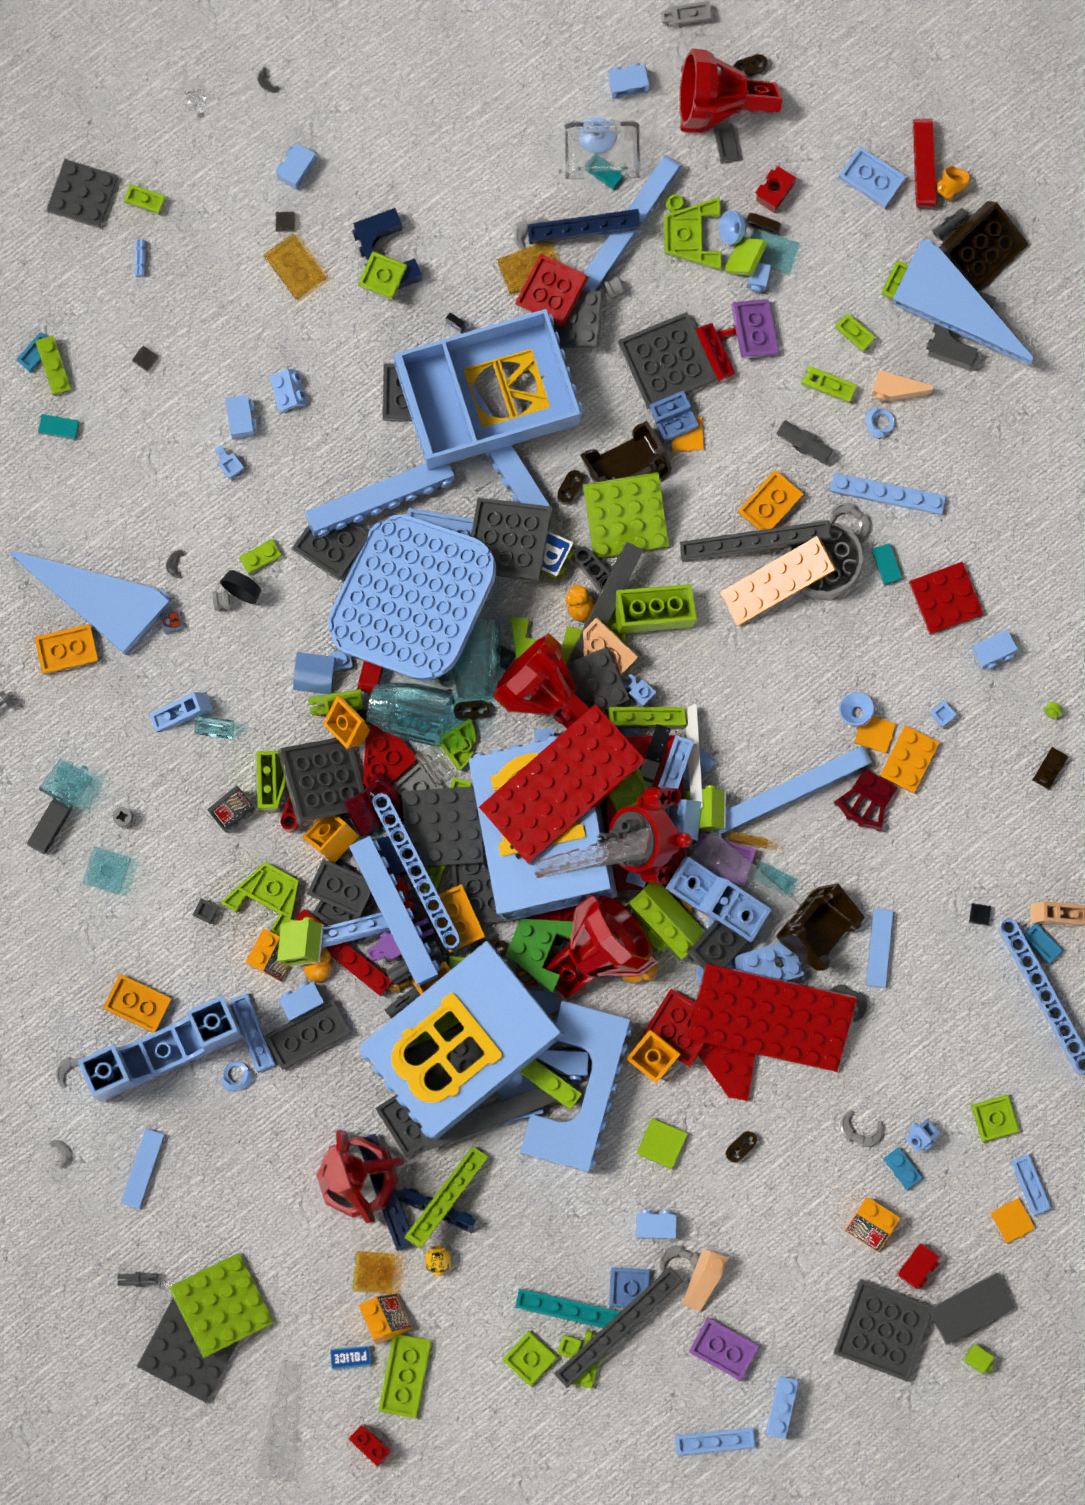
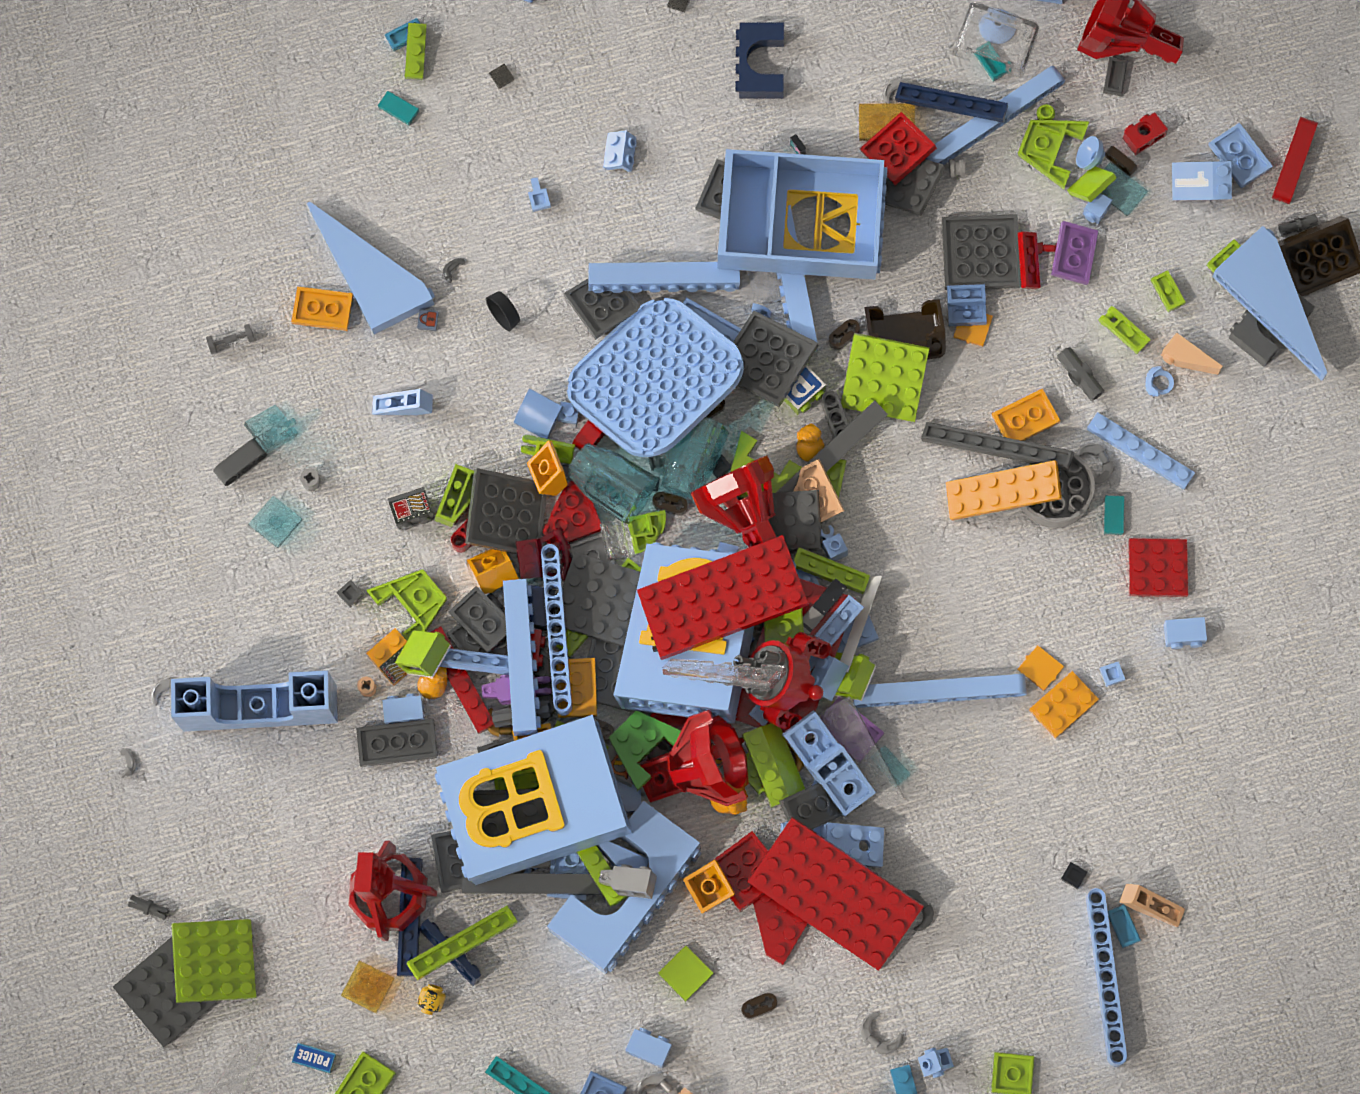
camera: 25 degrees right, 5 degrees down
(137, 1003) = (253, 653): light orange plate -> none
(142, 1168) = (195, 807): light blue tile -> none
(214, 727) = (427, 429): clear light blue plate -> none
(221, 600) = (480, 316): light grey wheel -> none
(229, 1085) = (306, 761): light blue piece -> none
(240, 416) = (566, 158): light blue brick -> none
(252, 1032) = (347, 721): light blue tile -> none
(259, 998) = (369, 681): none -> light nougat bush
(260, 556) = (533, 291): lime plate -> none
(294, 266) = (671, 43): clear yellow tile -> none
(382, 275) = (747, 78): lime tile -> none
(385, 1317) = (360, 1033): slope -> none
(483, 493) = (761, 309): none -> light blue tile
(580, 1080) = (630, 881): none -> light grey hinge
(655, 608) = (877, 473): lime slope -> none
(748, 840) = (880, 721): clear yellow tile -> none
(749, 61) = (1165, 14): dark brown beam -> none
(820, 925) = (916, 826): dark brown windscreen -> none
(846, 215) = (1202, 180): none -> light blue slope
(854, 701) = (1031, 630): light blue piece -> none
(873, 789) = (1018, 718): dark red plate -> none
(879, 948) = (965, 870): light blue tile -> none
(952, 182) = (1314, 187): light orange hair -> none
(1050, 768) = (1195, 764): dark brown plate -> none
(1053, 710) = (1219, 710): lime plate -> none

